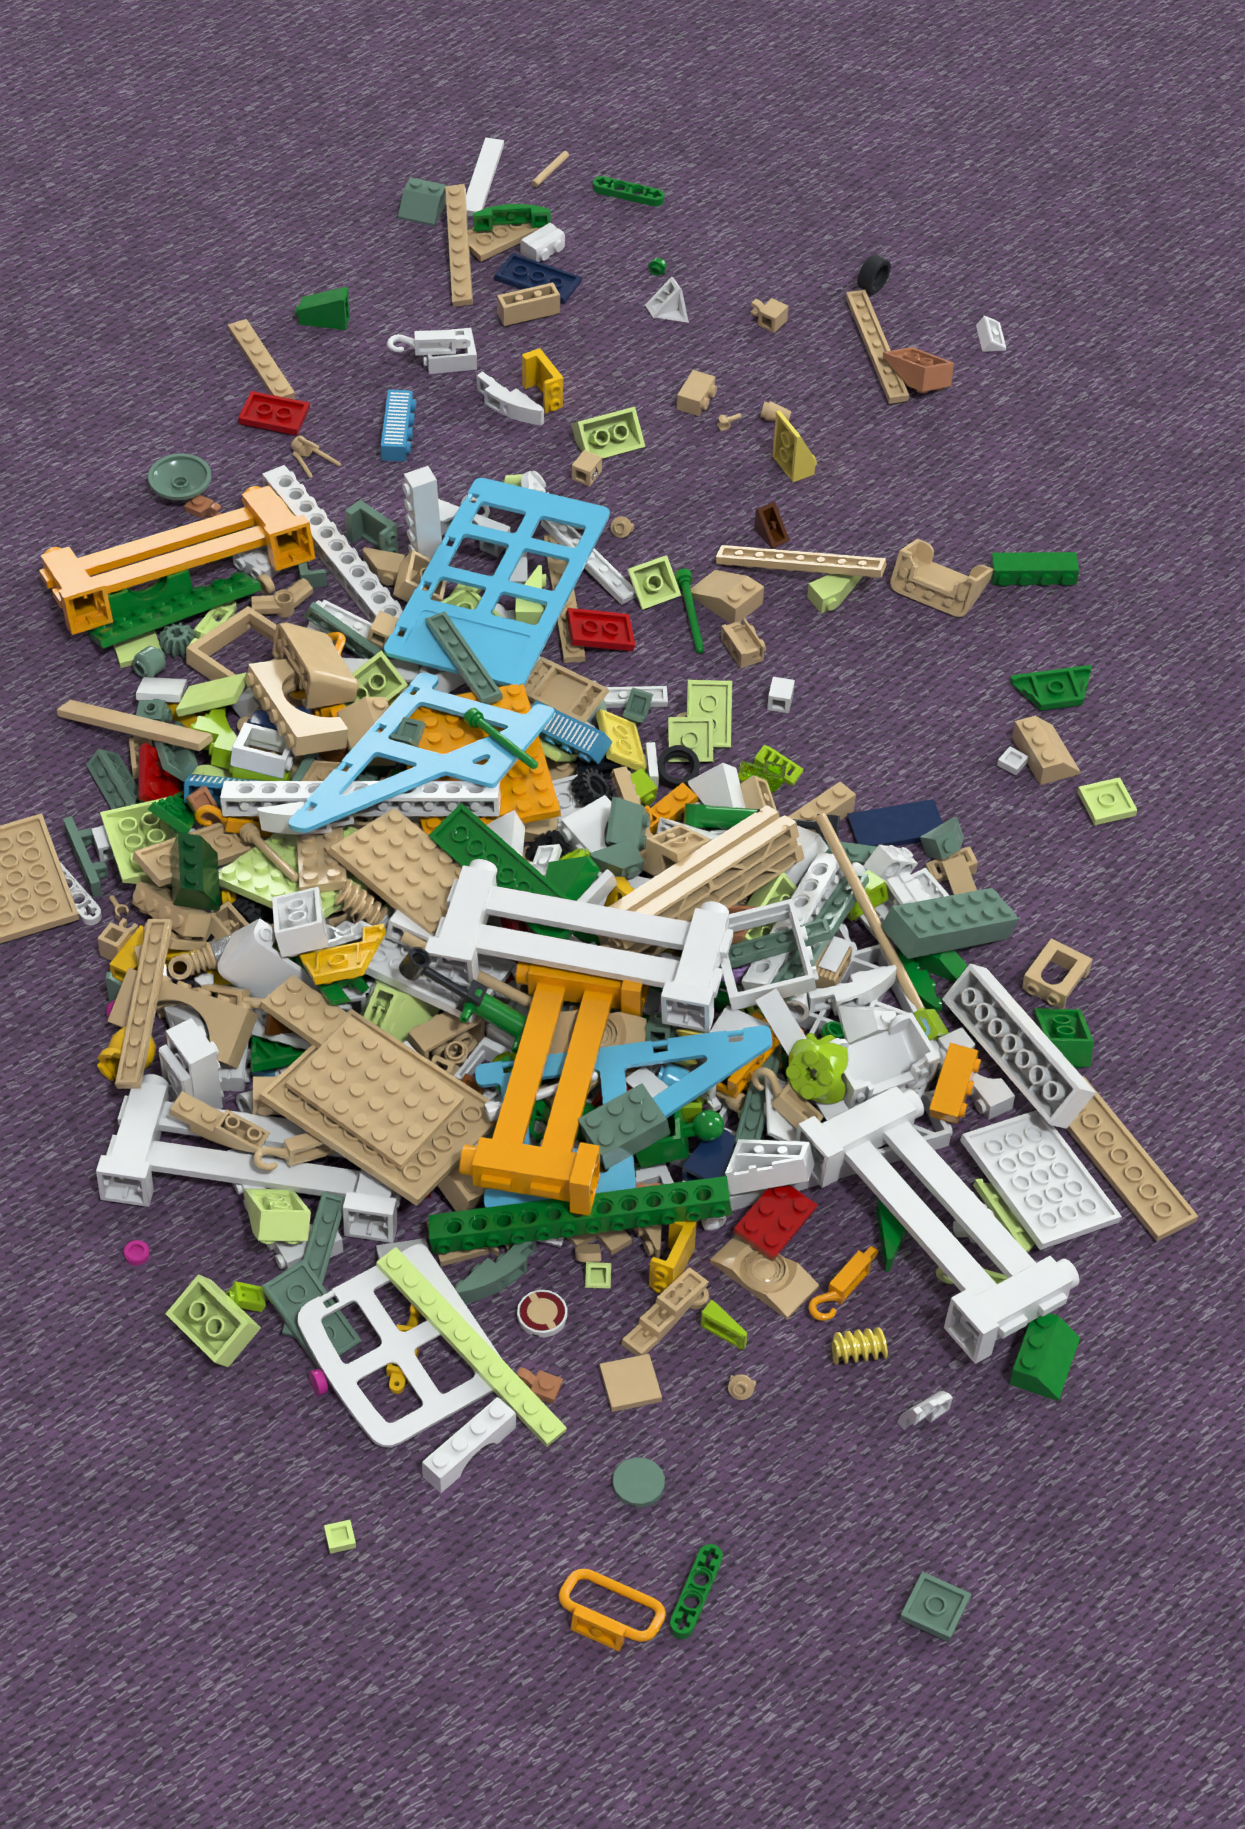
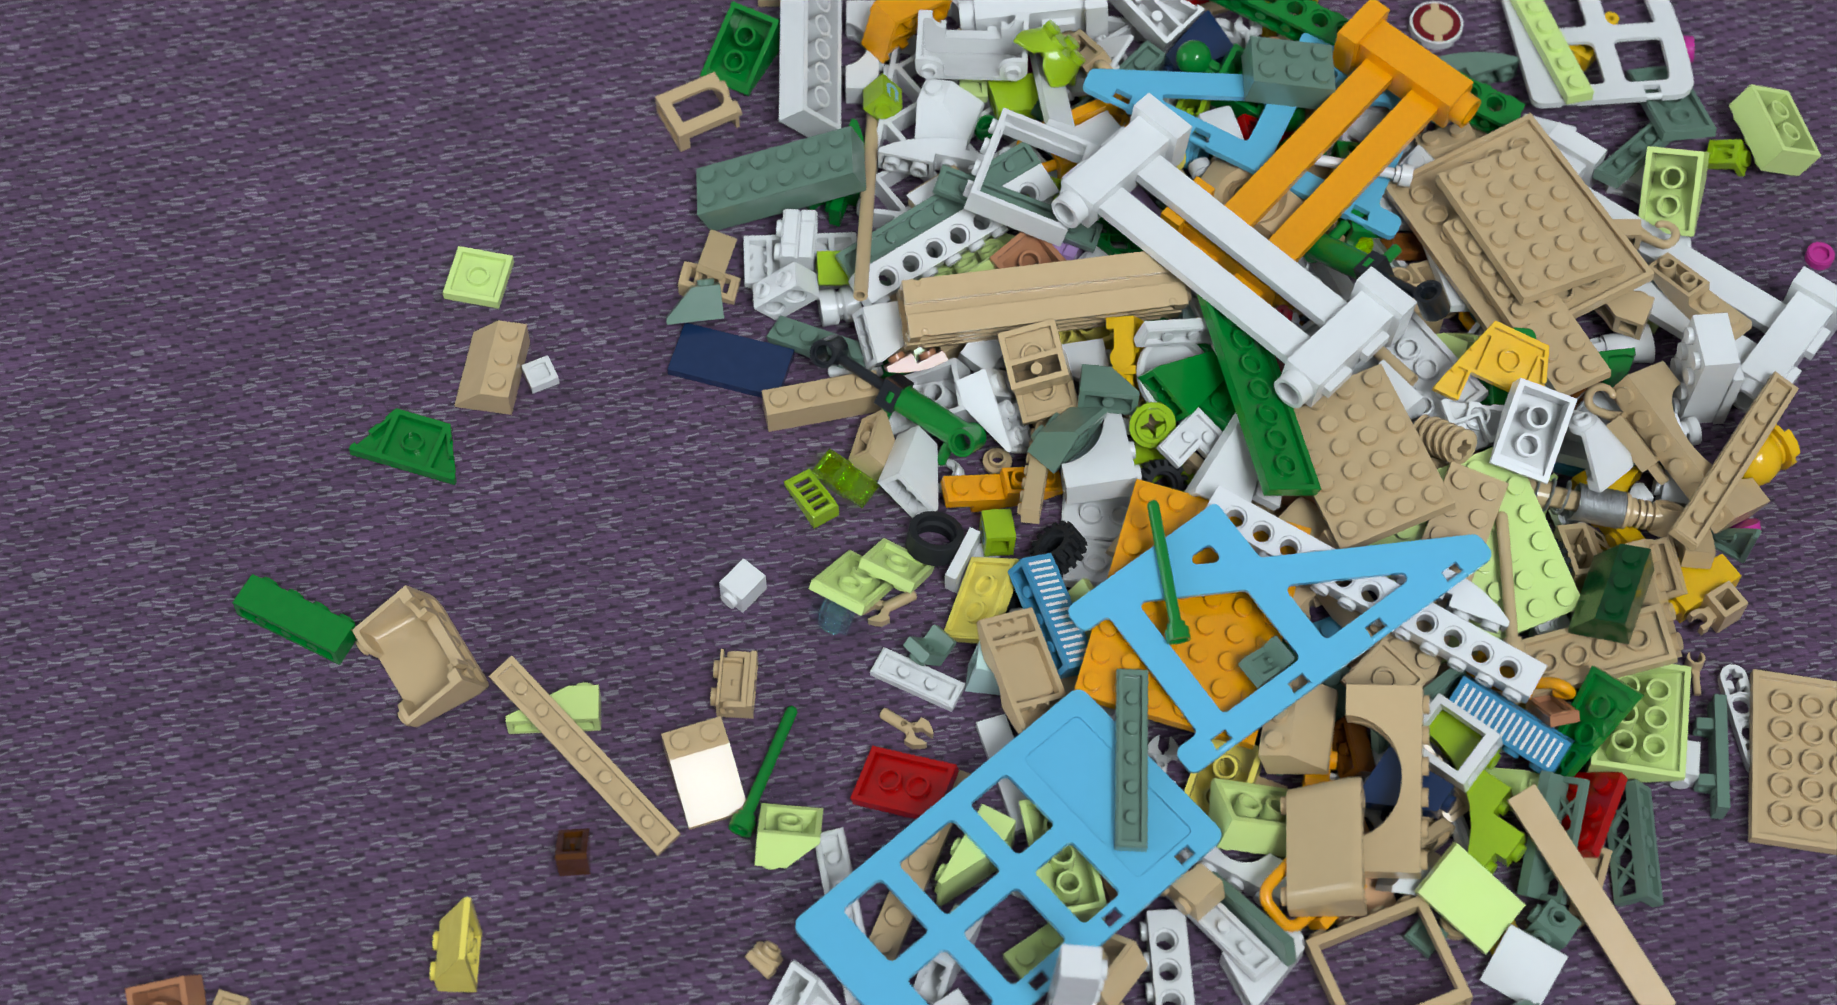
camera: 150 degrees left, 10 degrees up
(620, 669) = (908, 728): none -> tan bar

